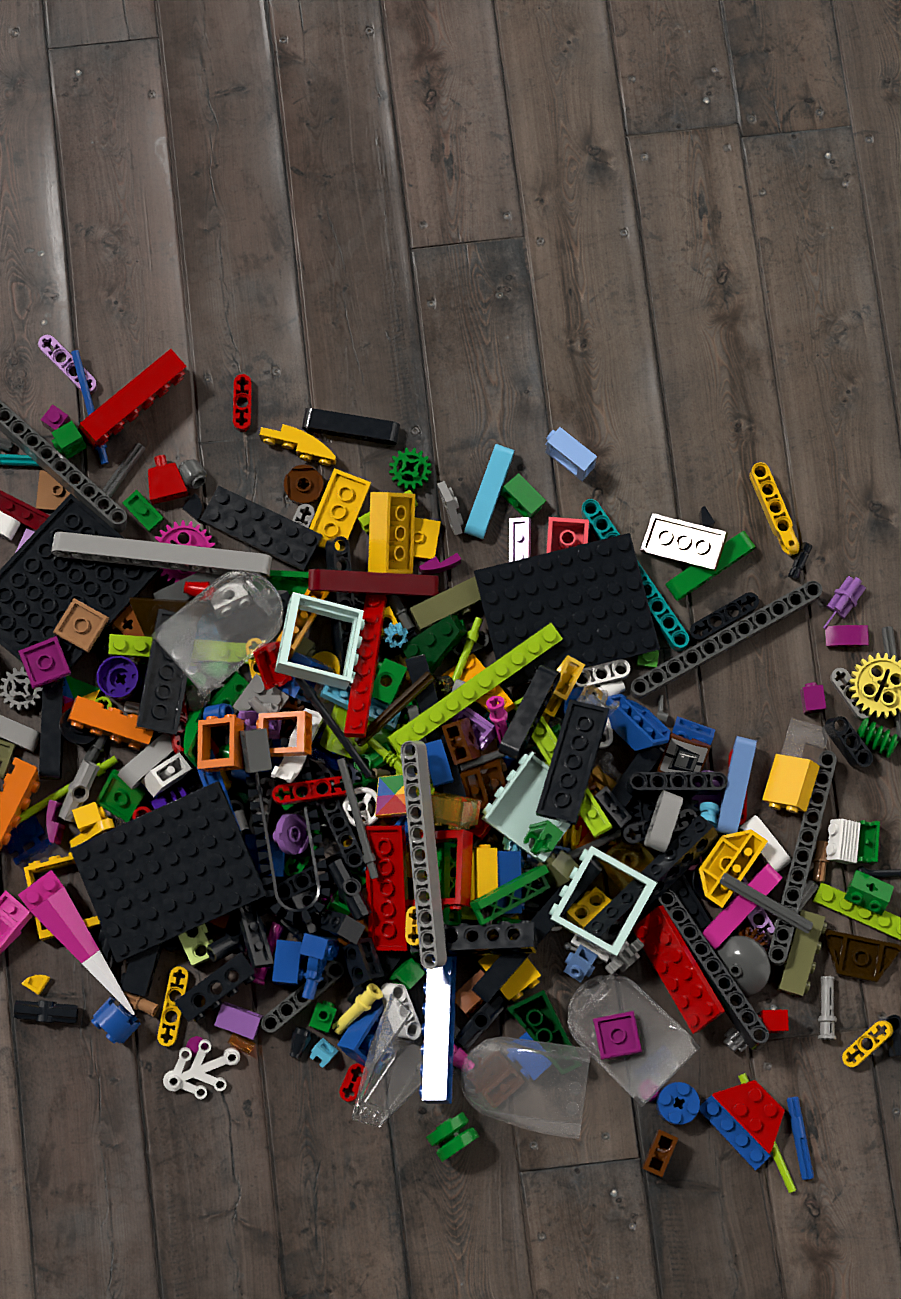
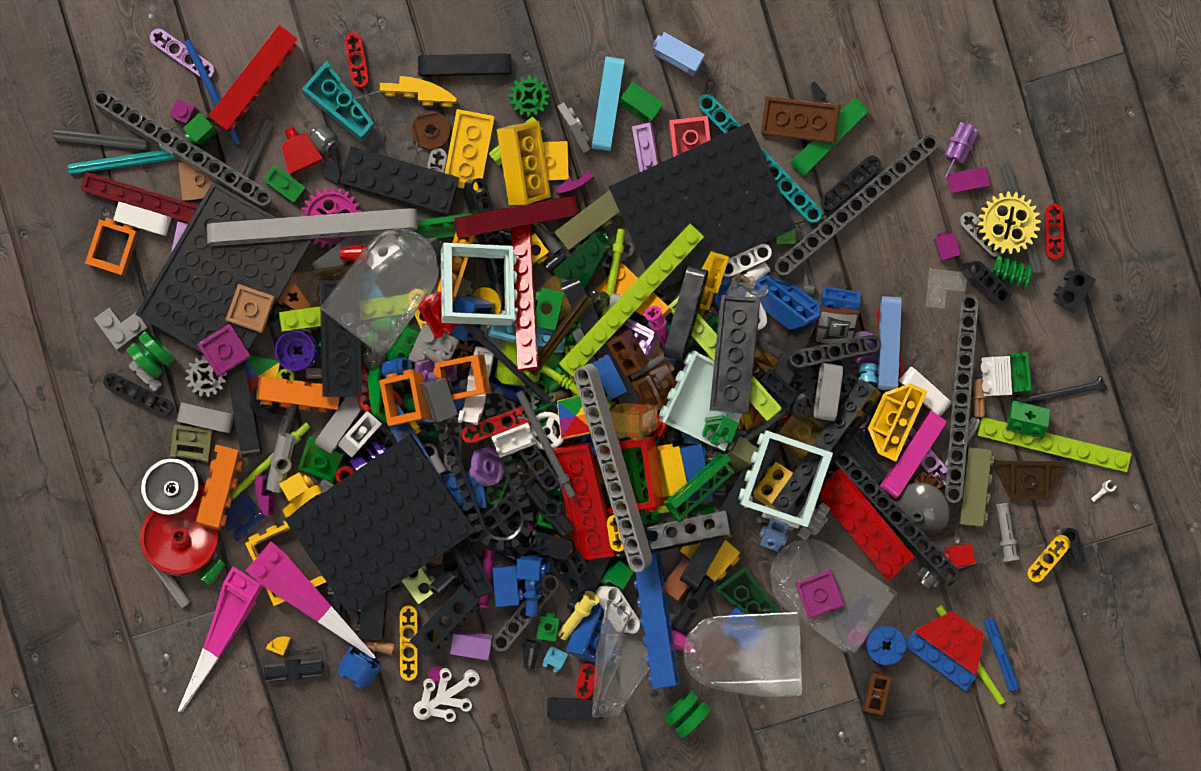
camera: 10 degrees left, 10 degrees up
(213, 437) = (334, 99): none -> teal wedge
(241, 1043) = (477, 664): clear orange pin -> none
(325, 808) = (513, 440): none -> white hinge
(330, 1108) = (570, 708): none -> black beam
(397, 640) = (546, 261): medium azure gear -> none
(766, 903) = (935, 449): dark grey axle -> none
(787, 538) = (881, 80): yellow piece -> none
(790, 783) = (939, 332): yellow brick -> none
(800, 560) = (913, 115): black axle -> none

